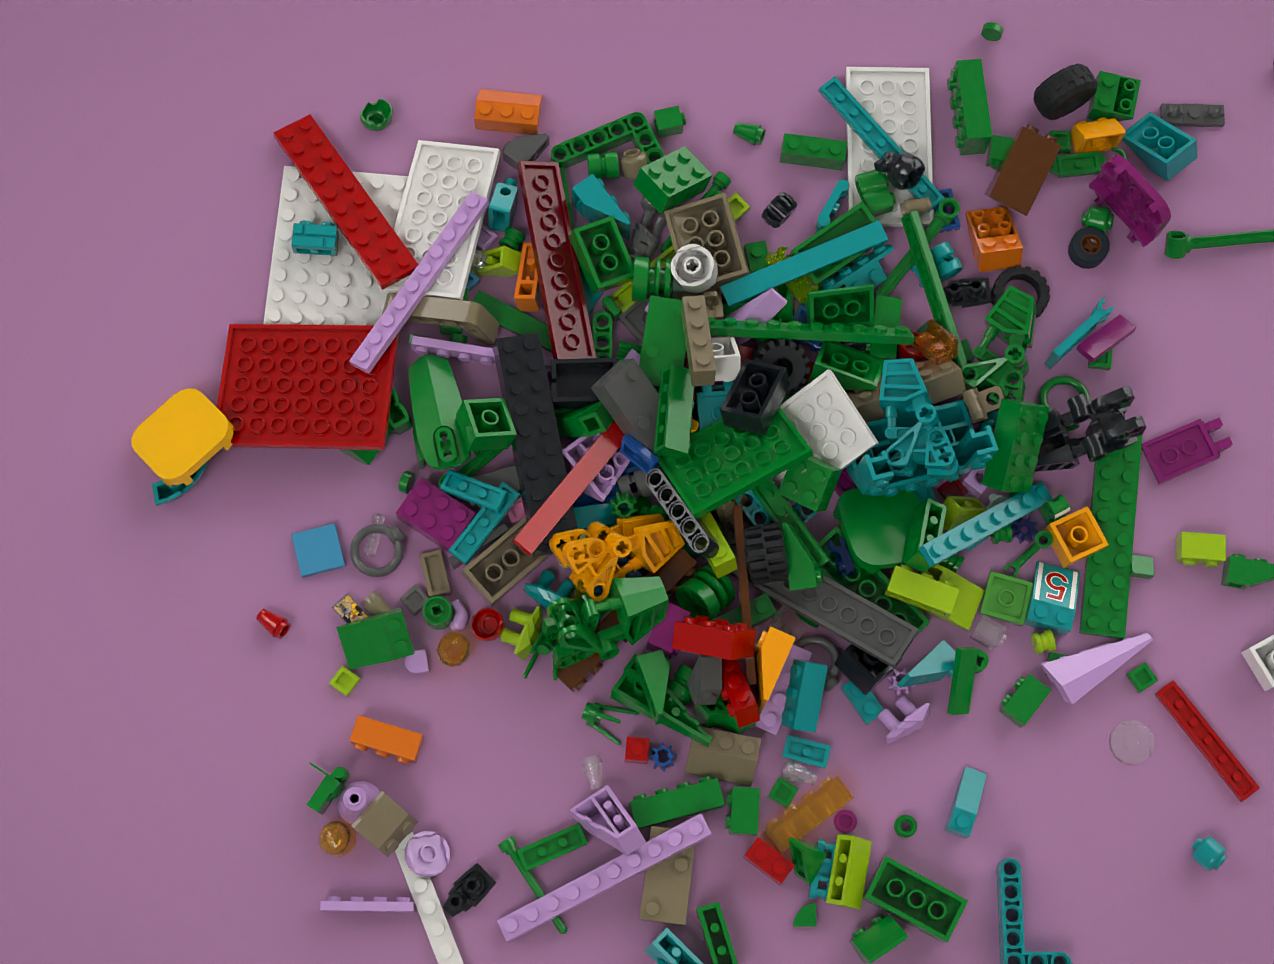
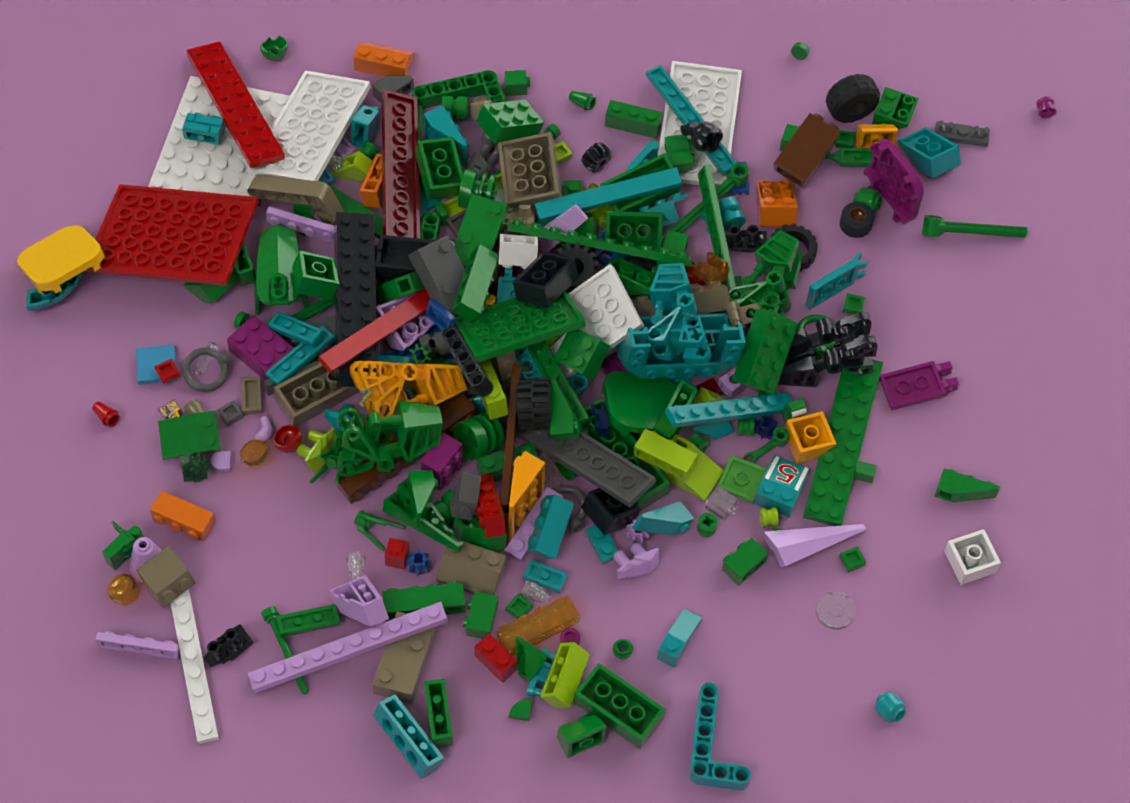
camera: 10 degrees right, 15 degrees down
(333, 560) = (167, 371): none -> red tile
(345, 681) = (156, 468): lime tile -> none
(389, 678) = (195, 467): none -> clear green brick
(419, 282) = (281, 167): lavender plate -> none
(427, 854) = (198, 610): lavender tile -> none
(437, 613) = (246, 422): green wheel -> none
(698, 340) = (503, 226): dark tan brick -> none
(705, 273) = (514, 183): white brick -> none
(714, 638) = (477, 460): red brick -> none
(921, 205) = (716, 166): dark tan cone -> none
(962, 680) = (691, 535): green tile -> none
(970, 107) = (770, 101): green brick -> none
(1106, 338) = (860, 288): magenta tile -> none
(1200, 549) = (919, 462): lime brick -> none
(1207, 741) = (903, 618): red tile -> none

